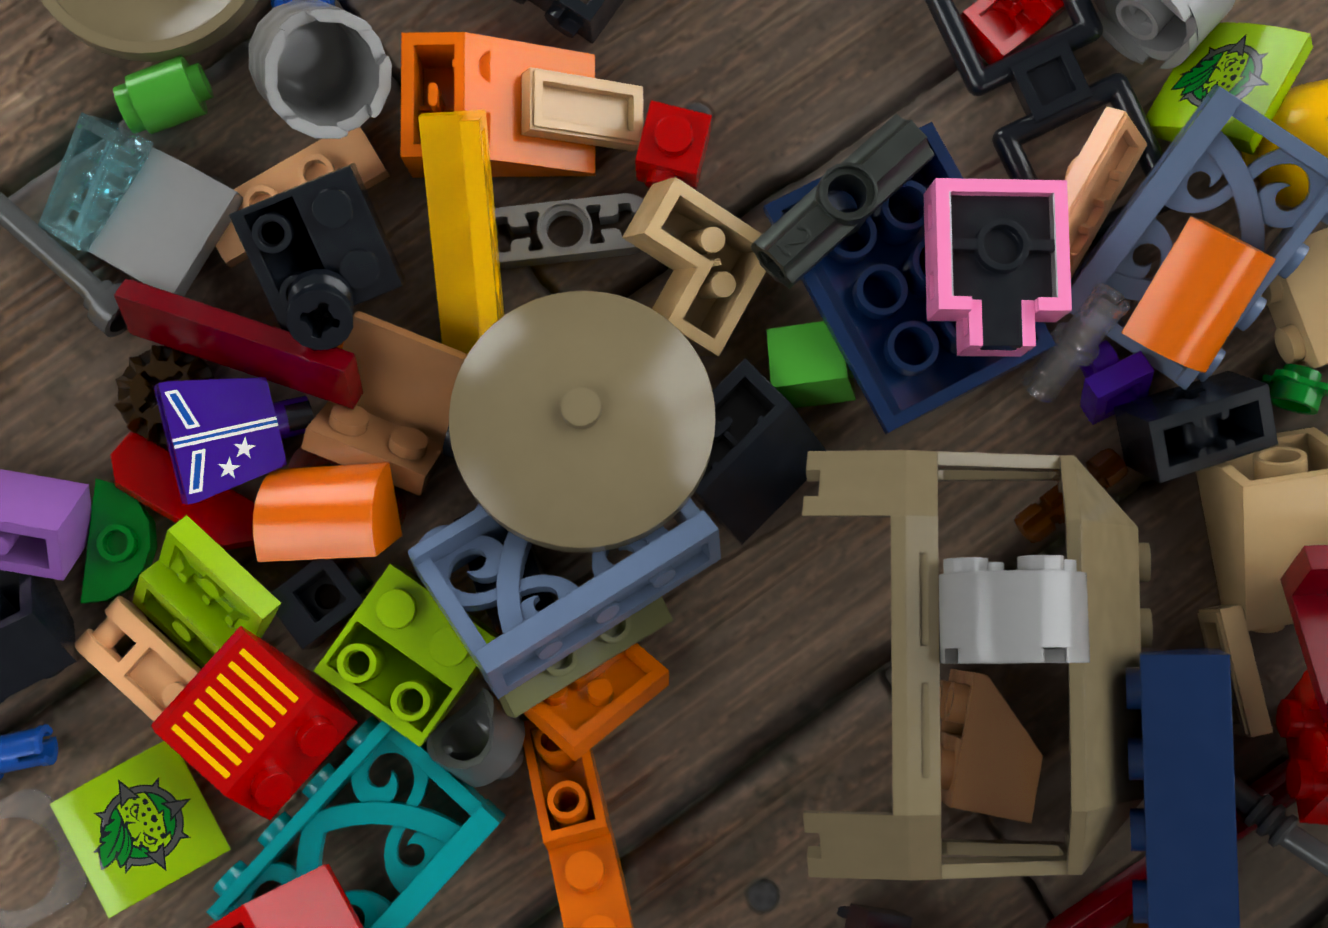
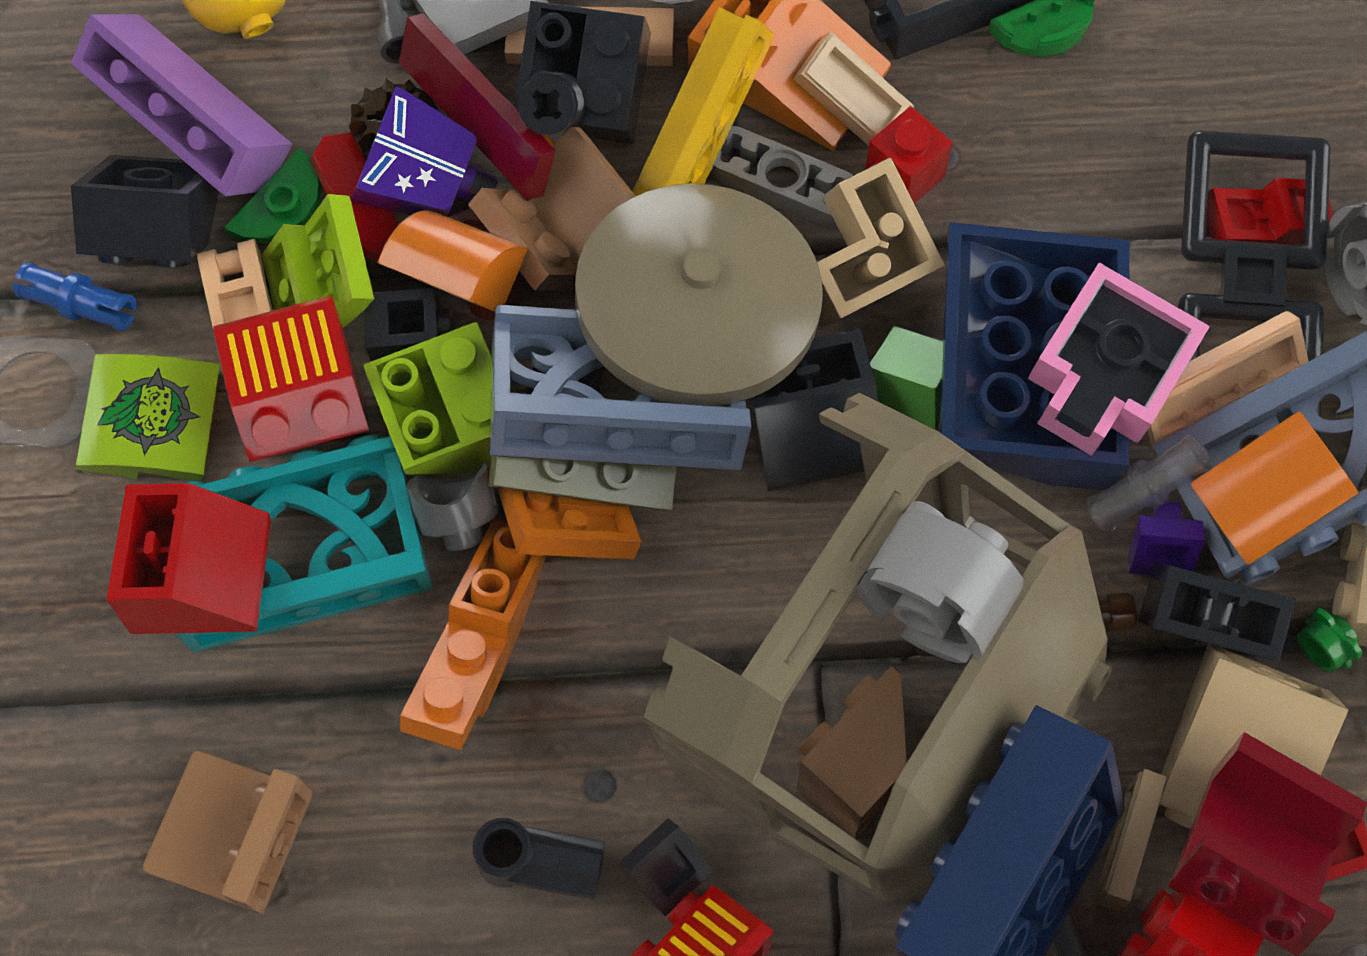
camera: 35 degrees right, 15 degrees down
(868, 175) = (1048, 242): pearl dark grey piece -> none

